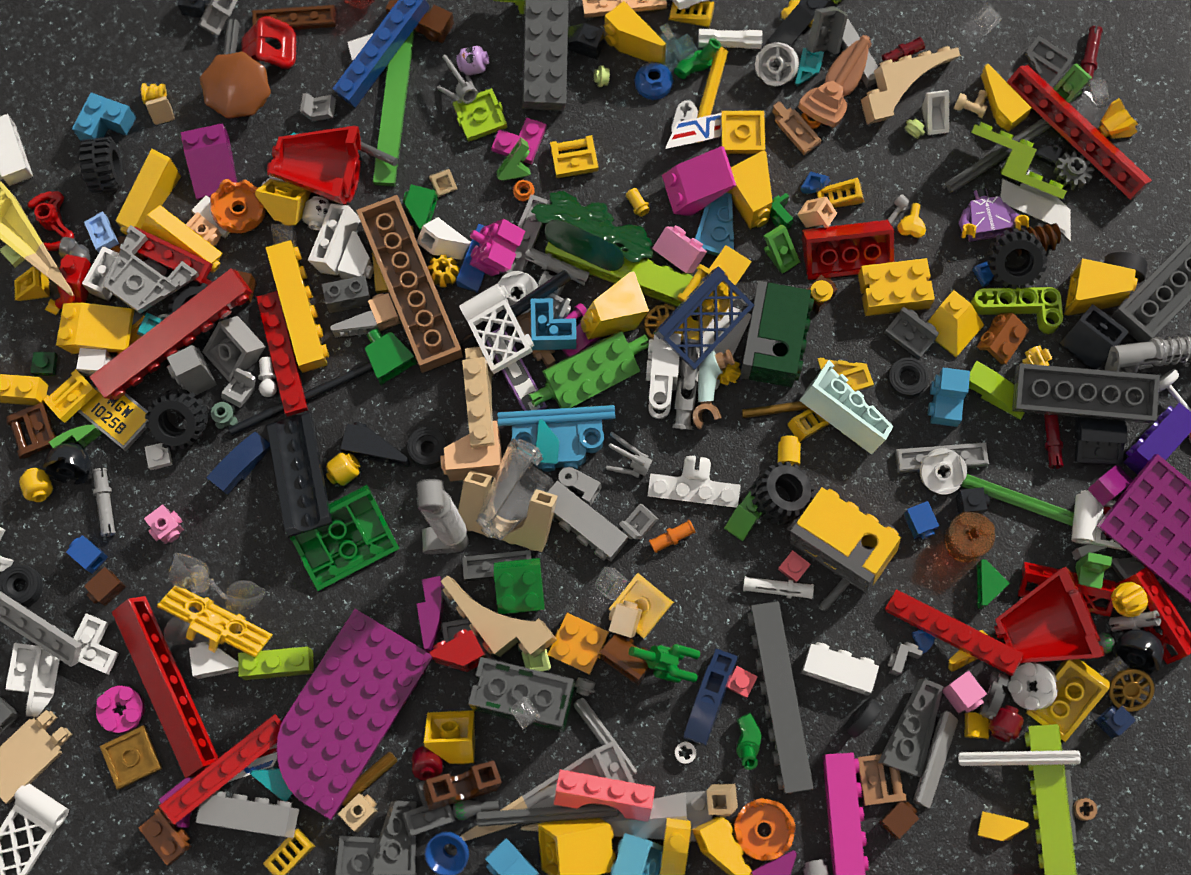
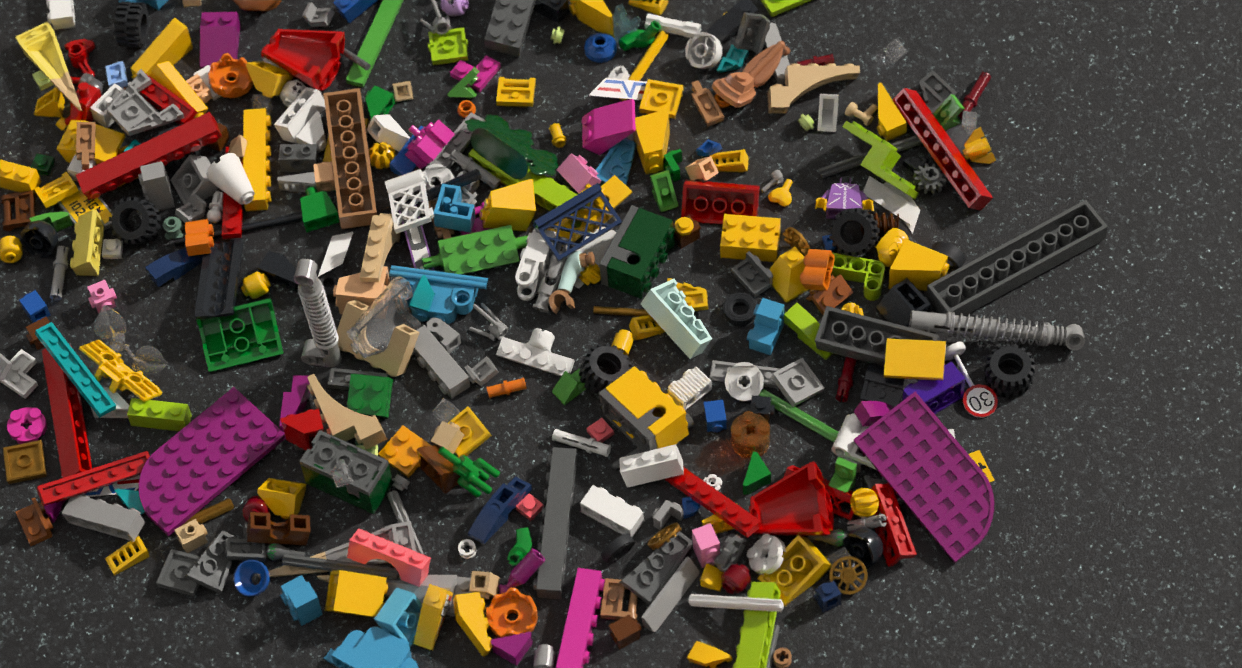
camera: 15 degrees right, 15 degrees down
(90, 333) = (85, 143): none -> medium nougat hinge
(128, 461) = (88, 244): none -> light yellow slope
(161, 635) = (75, 369): none -> teal plate
(258, 424) = (198, 237): none -> orange brick
(272, 298) = (238, 146): none -> tan slope
(279, 344) = (231, 178): none -> white cone
(424, 406) = (335, 252): none -> white sticker
(763, 774) = (523, 570): none -> magenta wheel
(871, 604) = (651, 465): none -> white brick
(882, 492) = (689, 388): none -> white brick
(908, 692) = (663, 536): none -> pearl gold wheel
(946, 601) = (713, 478): none -> white plate
(952, 281) = (796, 240): none -> pearl gold wheel
(989, 315) = (817, 269): none -> orange brick
(1002, 458) = (797, 382): none -> light grey plate
(1061, 266) = (890, 246): none -> yellow piece
(1142, 411) = (915, 359): none -> yellow tile

